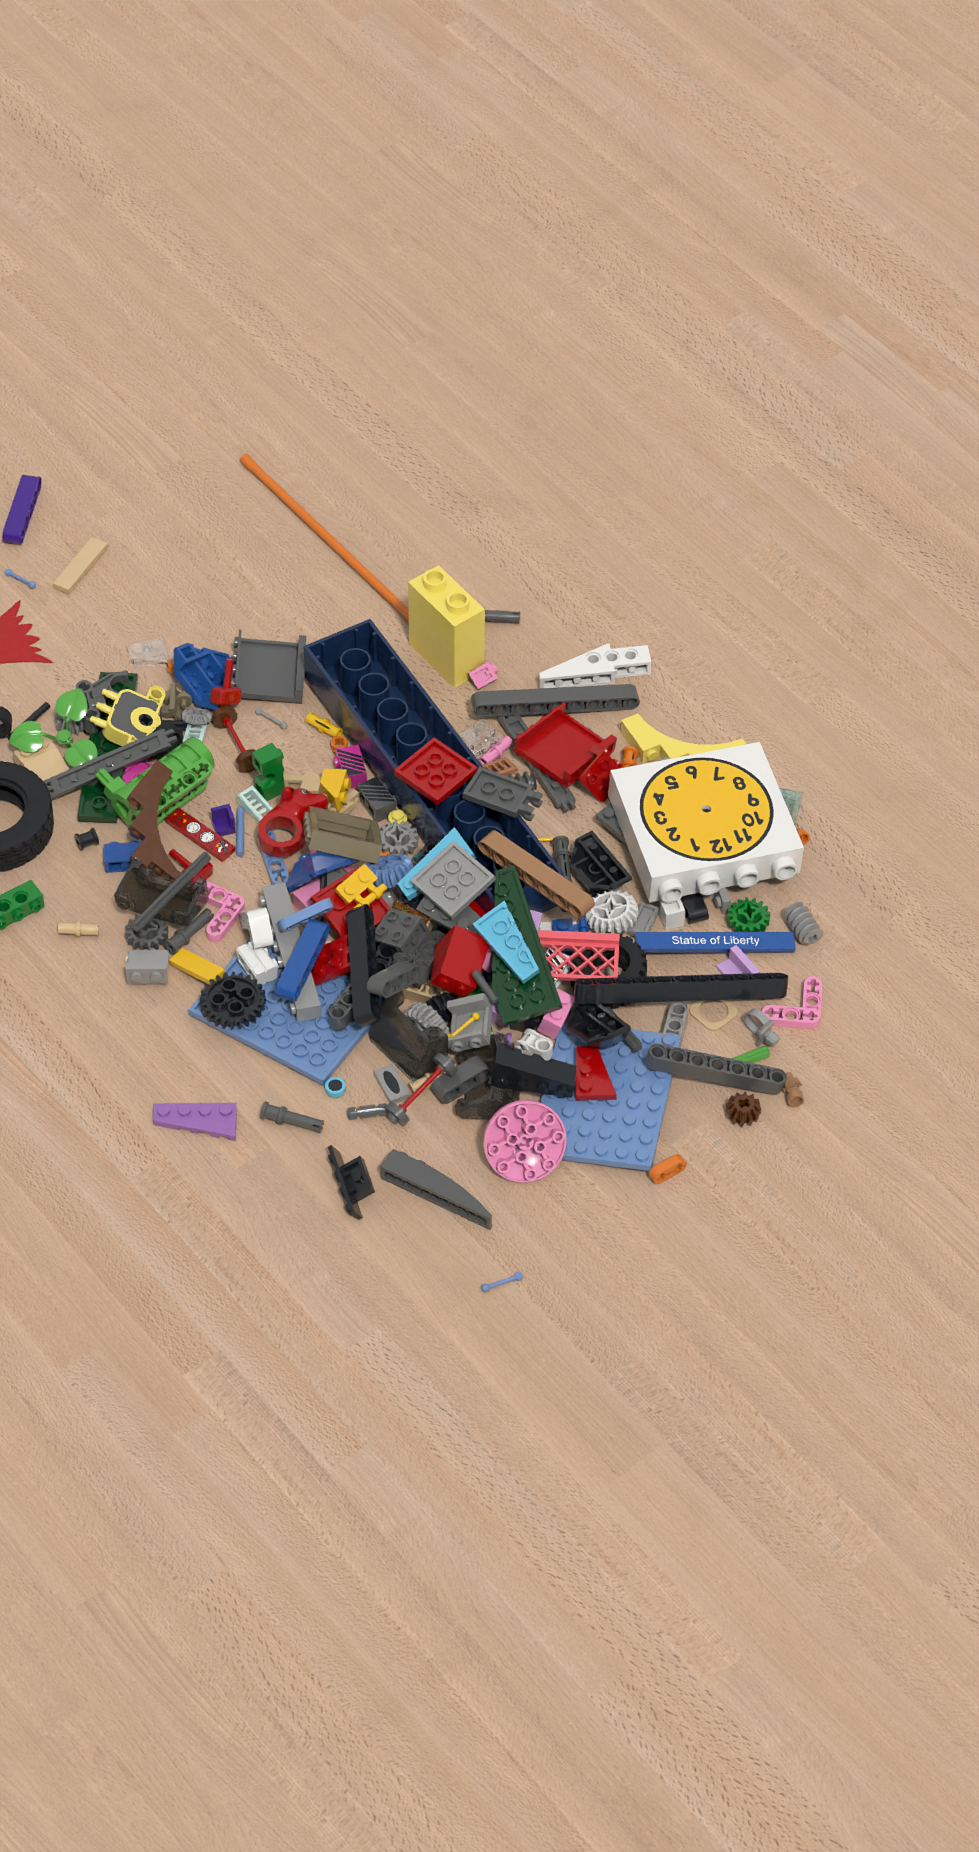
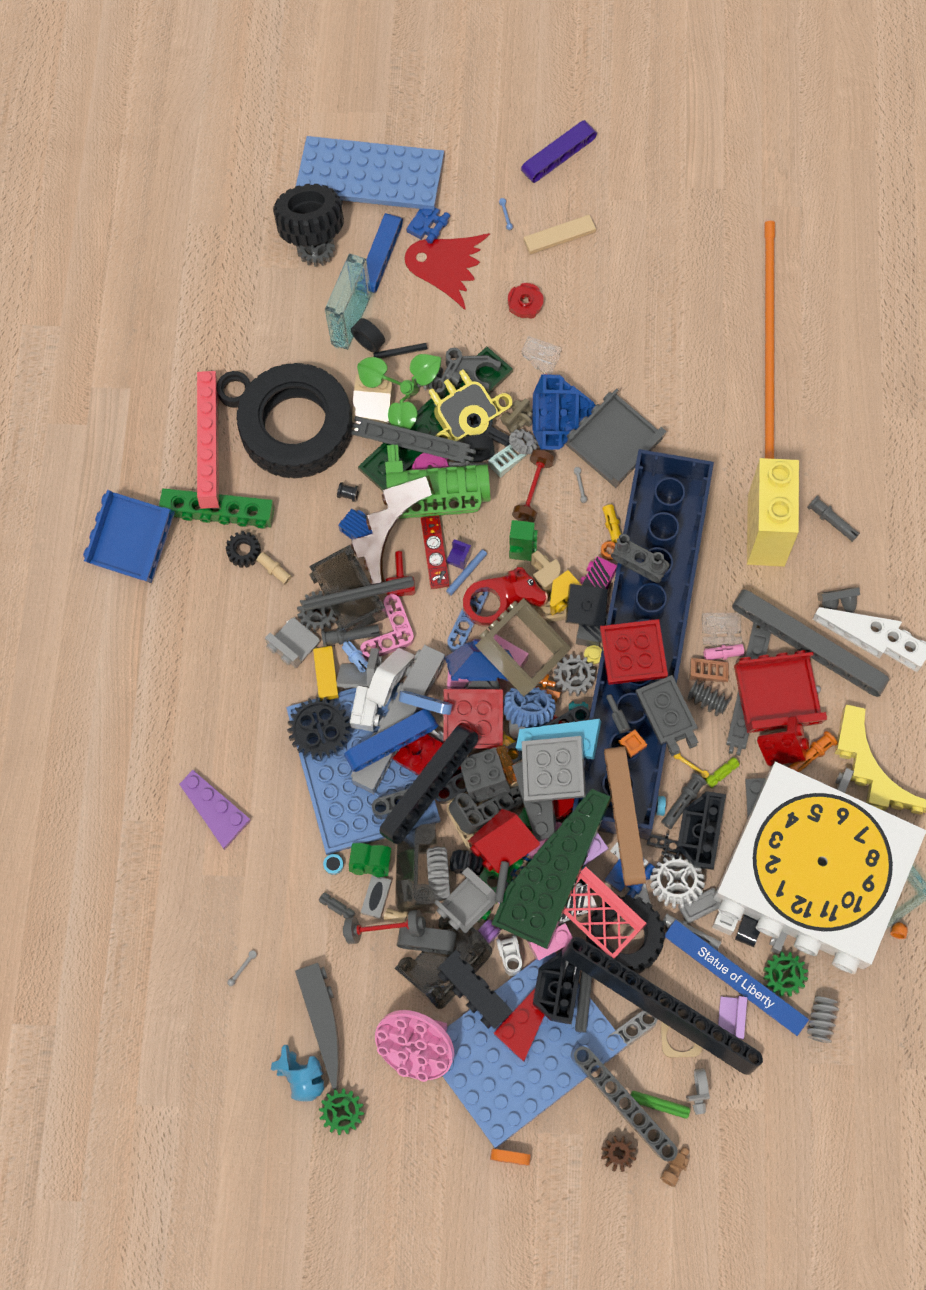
camera: 45 degrees right, 20 degrees up
(41, 941) = (243, 539): none -> black tyre
(102, 632) = (521, 309): none -> red plate
(210, 939) = (354, 655): none -> light blue axle
(226, 694) = (556, 443): red piece -> none
(236, 936) = (350, 676): none -> light grey bracket
(251, 792) = (497, 543): light aqua slope -> none
(282, 1115) = (272, 859): dark grey pin -> none
(333, 1190) = (252, 955): none -> light grey hinge
(353, 1179) = (269, 961): black bracket -> none
(357, 884) = (487, 705): yellow plate -> none
(362, 1060) = (370, 859): none -> green brick
(363, 780) = (586, 605): none -> black plate
(381, 709) = (627, 552): none -> dark grey piece
(393, 979) = (432, 821): dark grey beam -> none
(460, 1231) = (303, 1079): none -> dark azure piece
(466, 819) = (618, 716): none -> dark grey axle
(475, 1016) = (443, 900): yellow hinge -> none
(483, 674) = (777, 572): bright pink bracket -> none
(494, 824) = (633, 743): none -> orange tile
(507, 942) = (547, 859): medium azure wing -> none
(511, 1233) = (346, 1102): none -> green gear
(518, 1276) = (316, 1152): medium blue hinge -> none
(550, 656) = (848, 598): none -> dark grey tile
(573, 826) = (722, 772): none -> lime axle
(805, 1011) = (755, 1101): bright pink beam -> none

